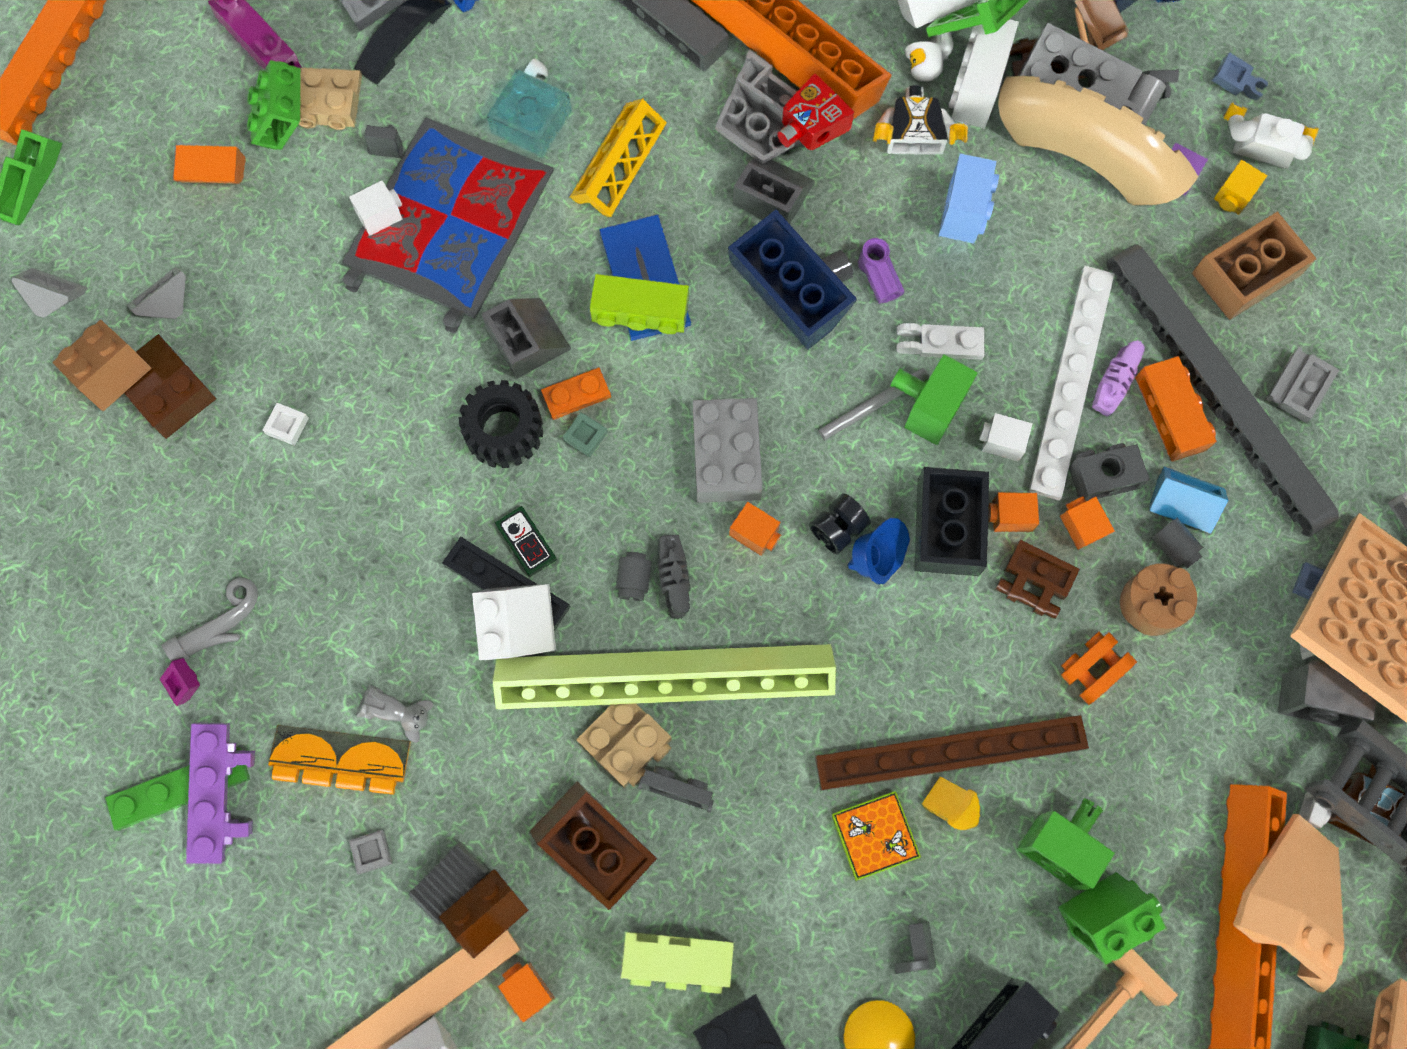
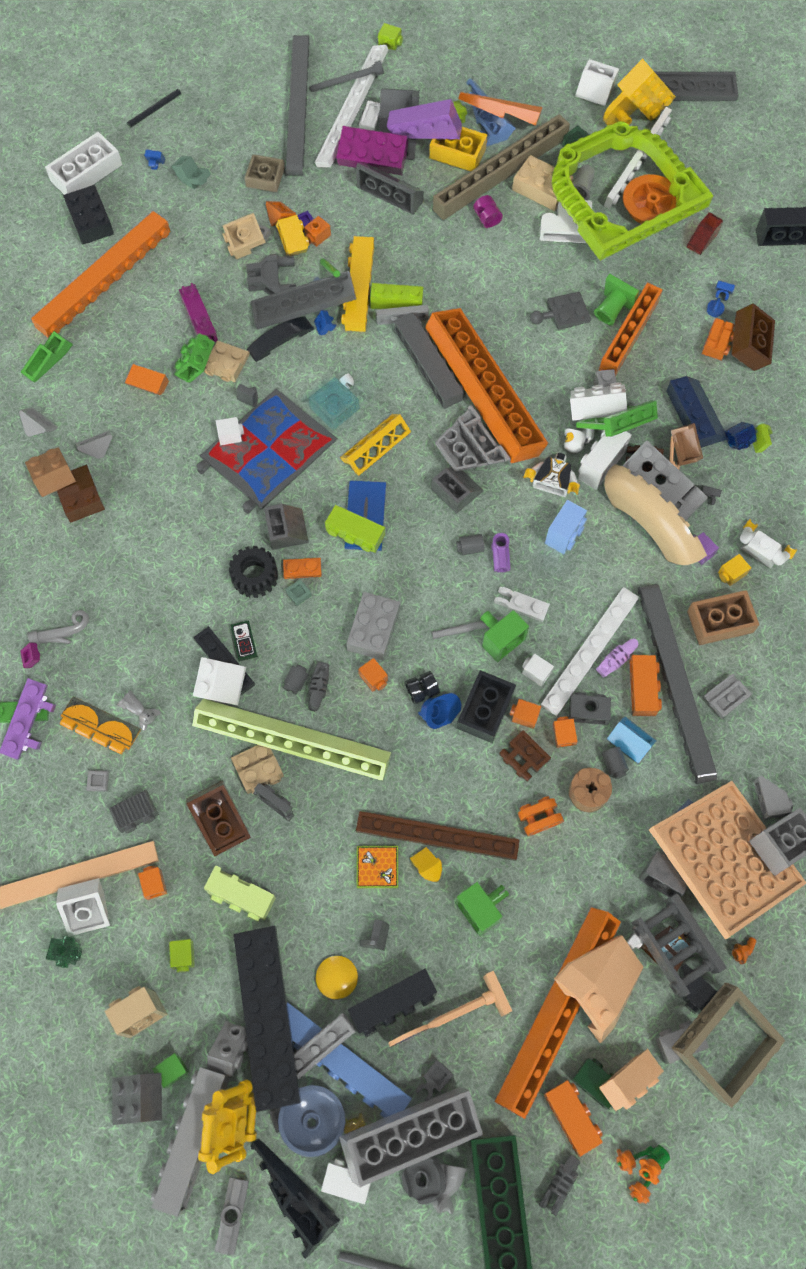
camera: 20 degrees right, 5 degrees down
(285, 424) = (136, 534): white plate -> none
(483, 913) = (145, 832): reddish brown brick -> none
(791, 279) = (446, 541): dark blue slope -> none
(814, 115) = (492, 453): red torso -> none
(1113, 917) = (491, 955): bright green brick -> none
(1236, 76) = (759, 505): sand blue plate -> none

